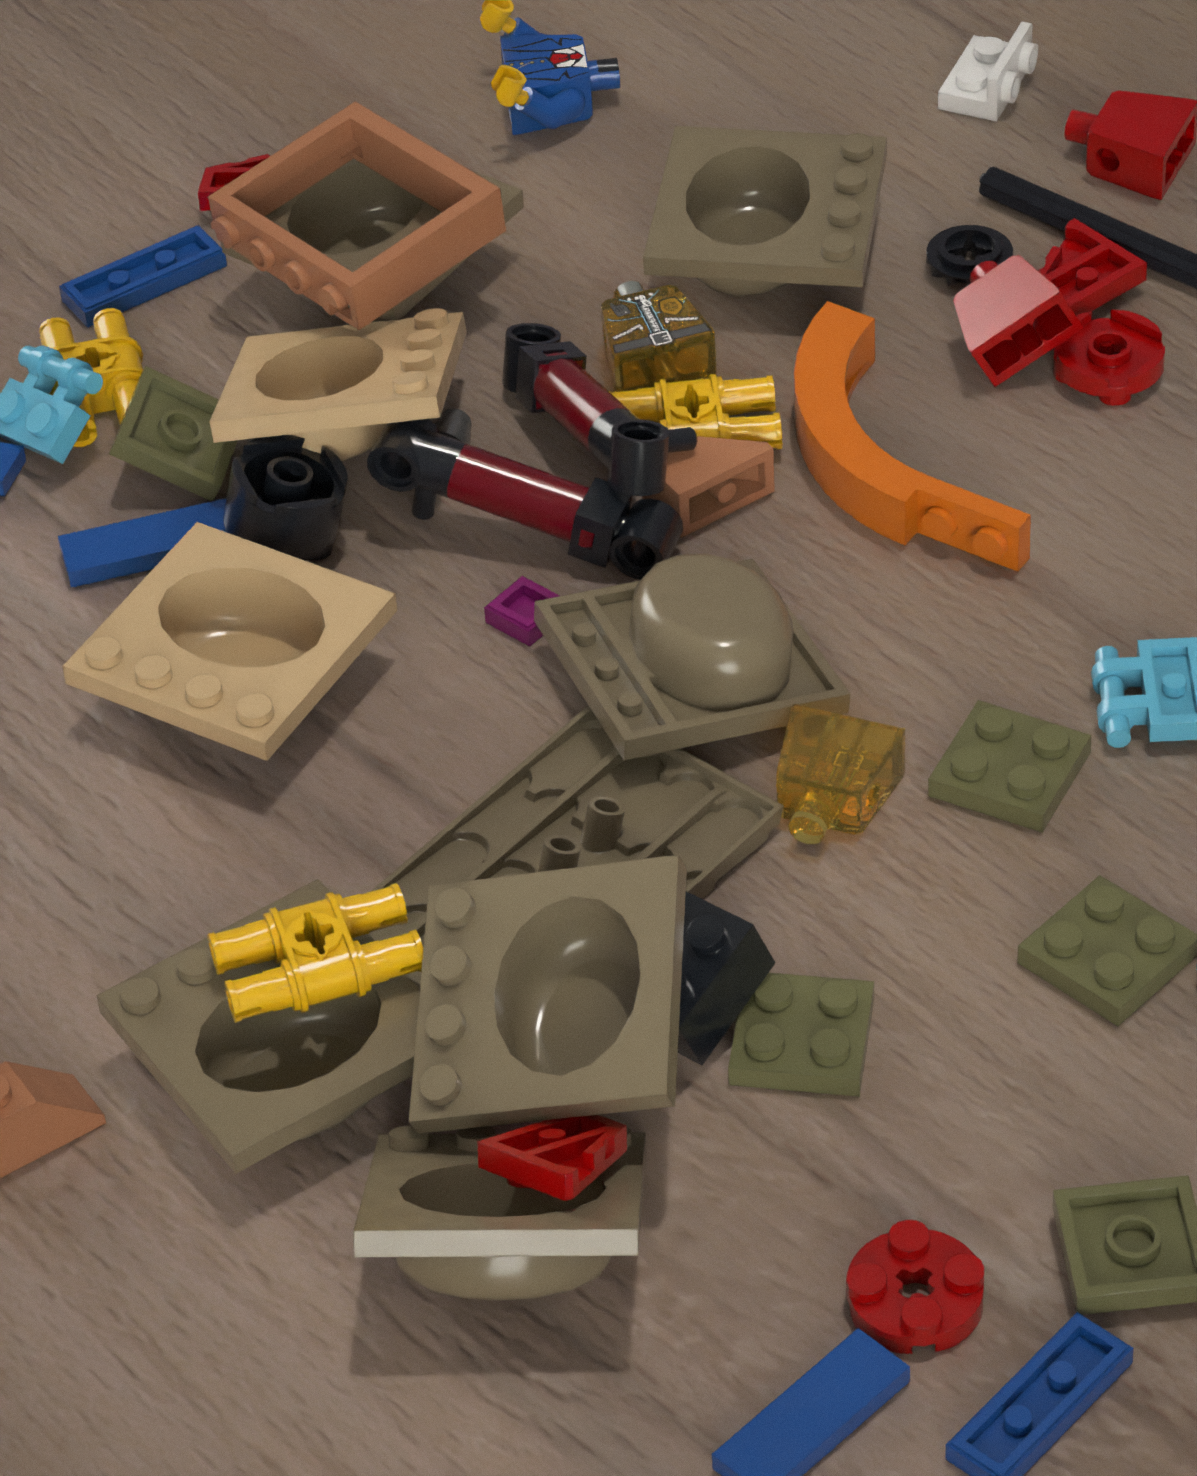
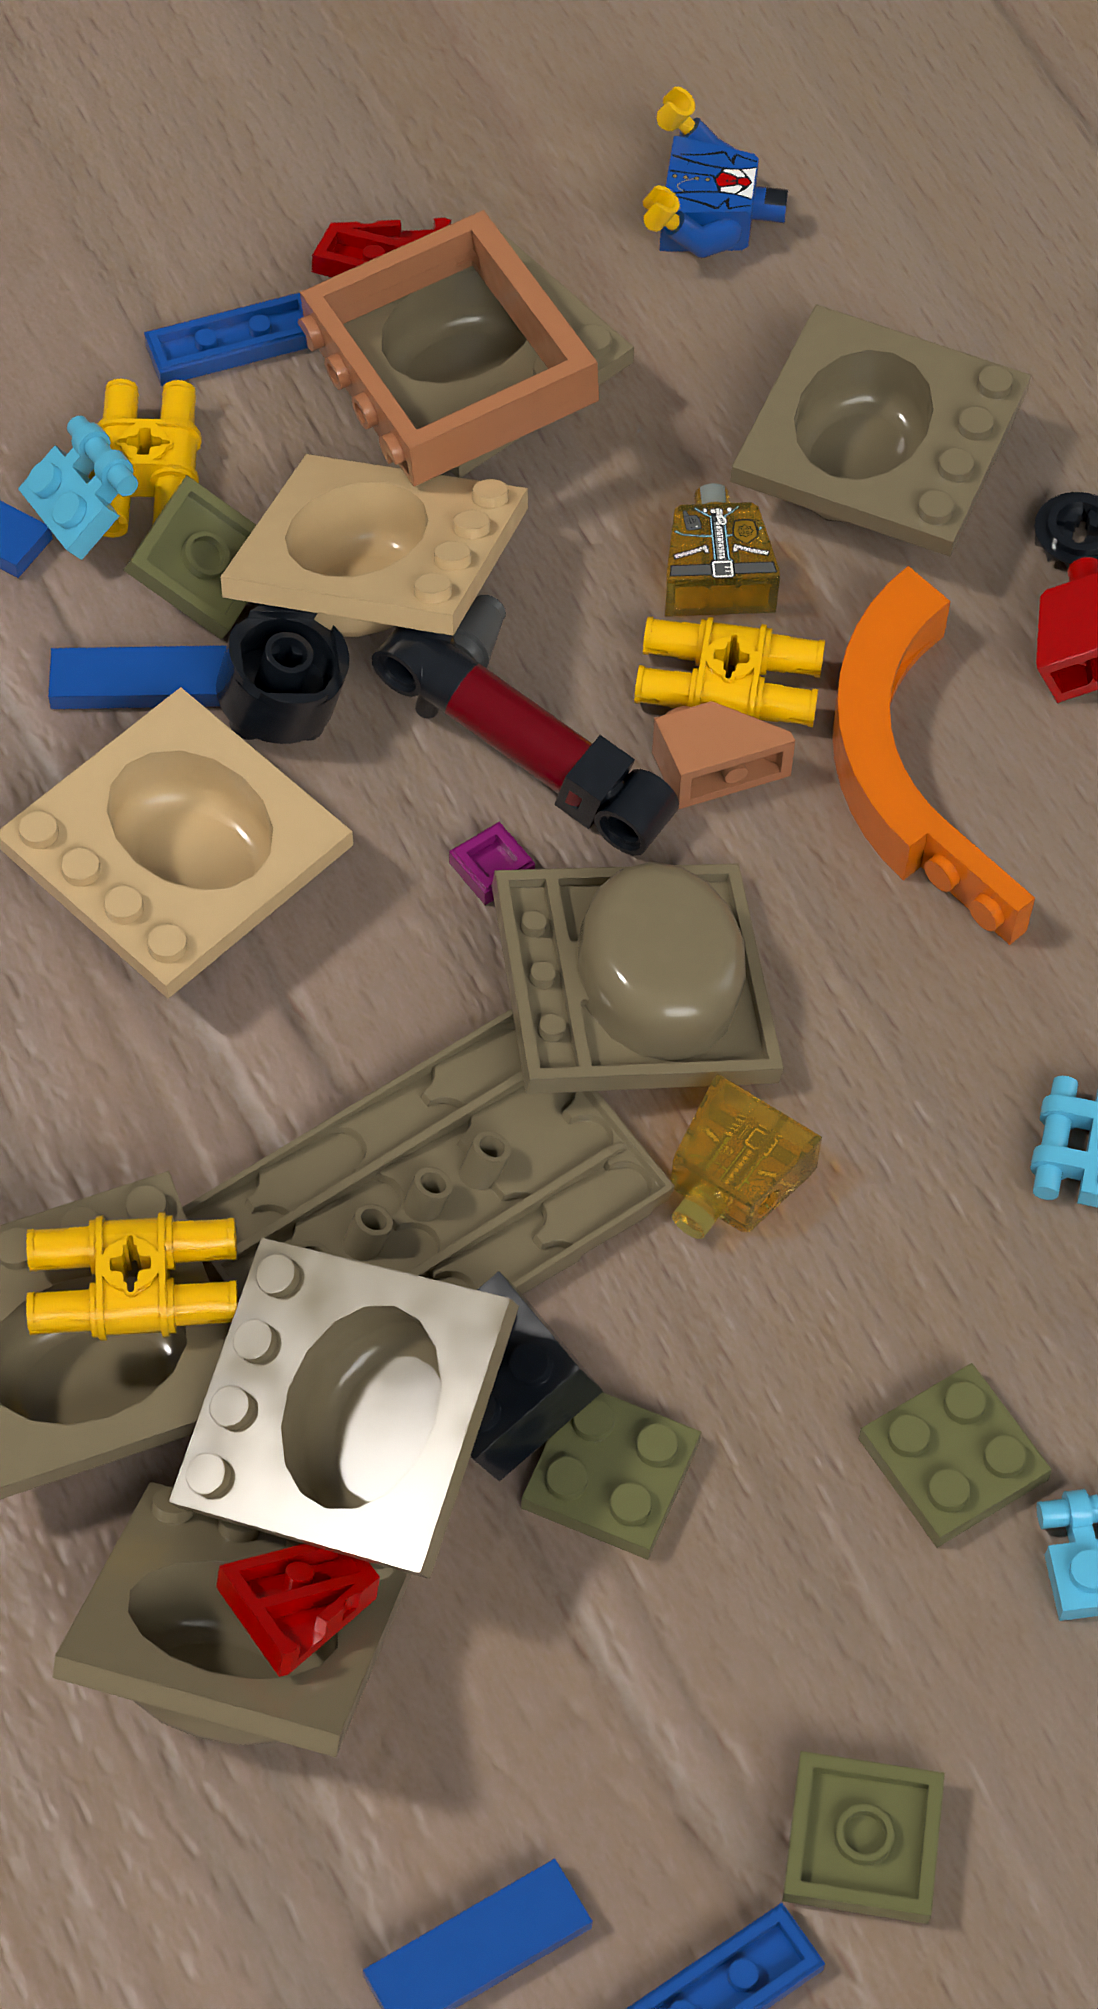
camera: 10 degrees right, 15 degrees up
(555, 380) = (598, 595): black piece -> none
(923, 1257) = (621, 1863): red plate -> none
(1009, 766) = (924, 1194): olive plate -> none

